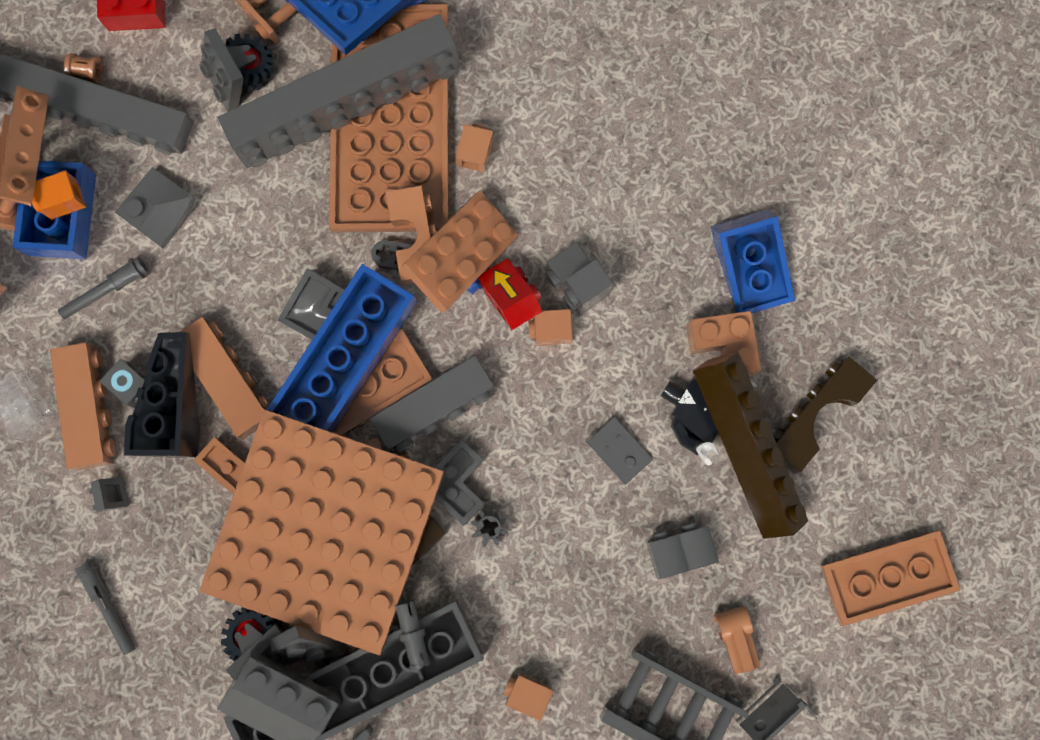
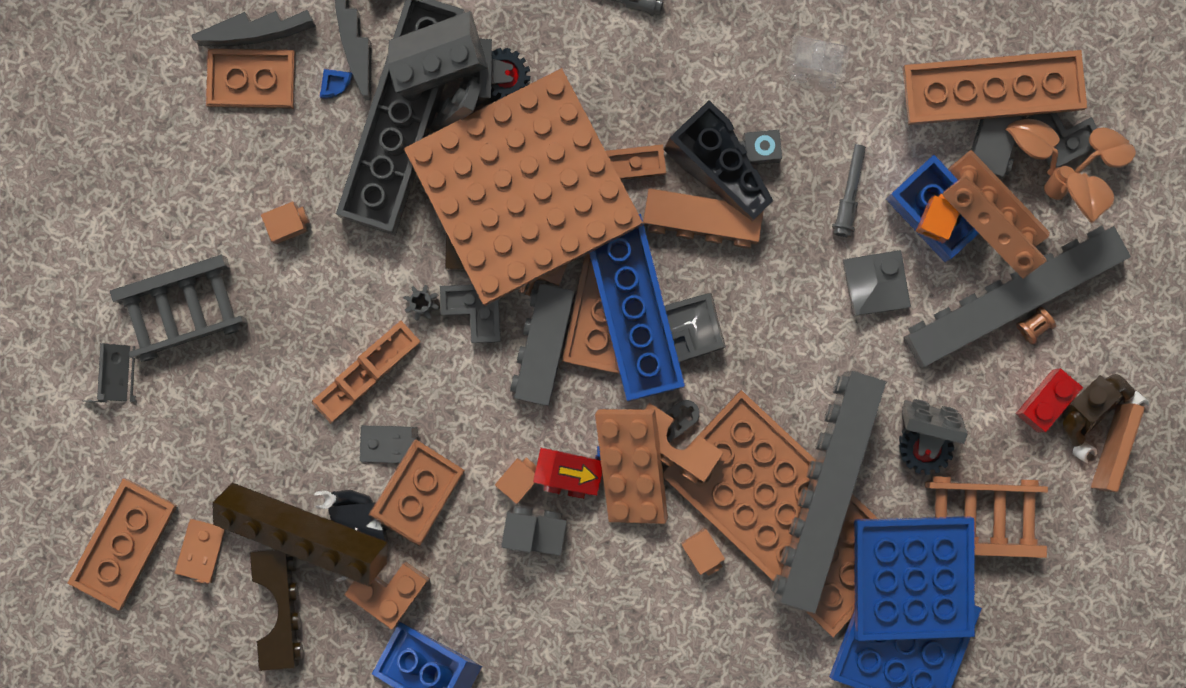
camera: 135 degrees right, 5 degrees up
(82, 406) = (775, 102): nougat brick -> none
(109, 494) = (694, 66): dark grey tile -> none
(412, 634) = (396, 182): dark grey pin -> none
(582, 519) = (365, 372): none -> nougat slope
(634, 392) = (416, 492): none -> nougat tile
(682, 551) = (277, 419): dark grey brick -> none
(736, 634) = (189, 401): nougat piece -> none
(836, 513) = (200, 551): none -> nougat piece

